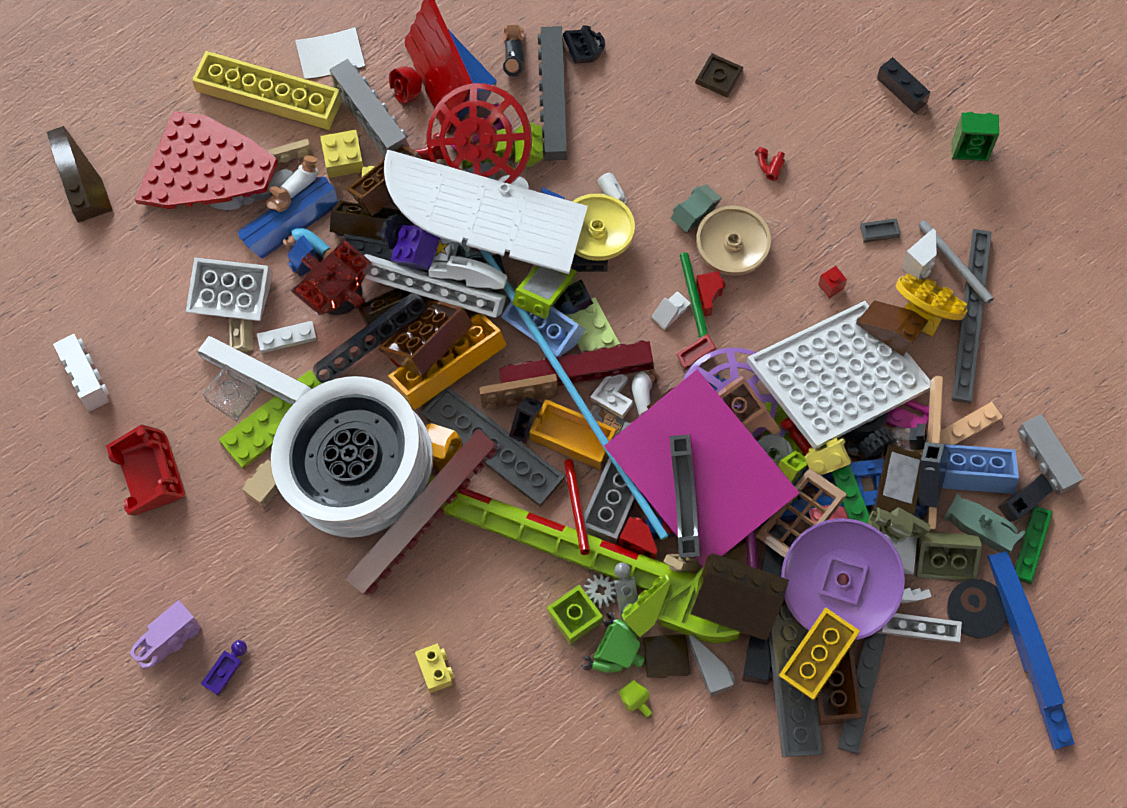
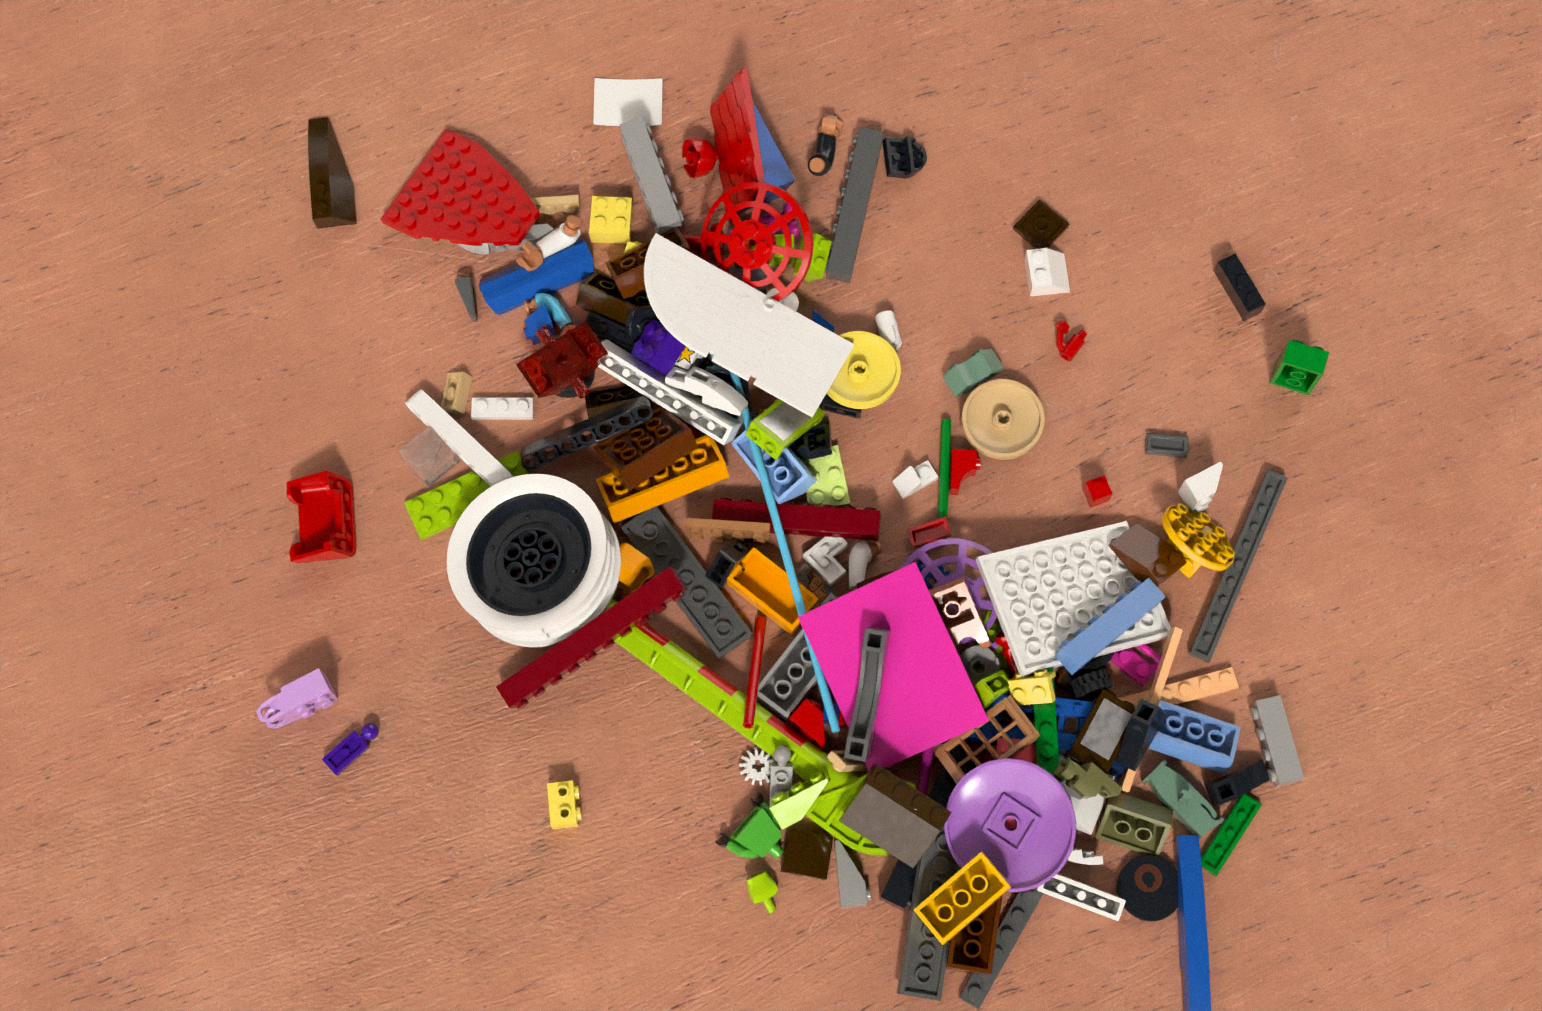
camera: 15 degrees right, 5 degrees up
(81, 372) = (280, 394): white wedge -> none
(227, 244) = (466, 290): none -> dark grey slope
(228, 289) = (454, 343): white slope -> none
(261, 486) = (434, 564): tan brick -> none
(267, 90) = (549, 129): light yellow brick -> none
(574, 614) = (722, 786): lime brick -> none
(734, 111) = (1046, 272): none -> white slope
(878, 389) = (1111, 625): none -> medium blue brick
(910, 437) = (1130, 685): leg -> none
(958, 264) = (1238, 504): light grey piece -> none

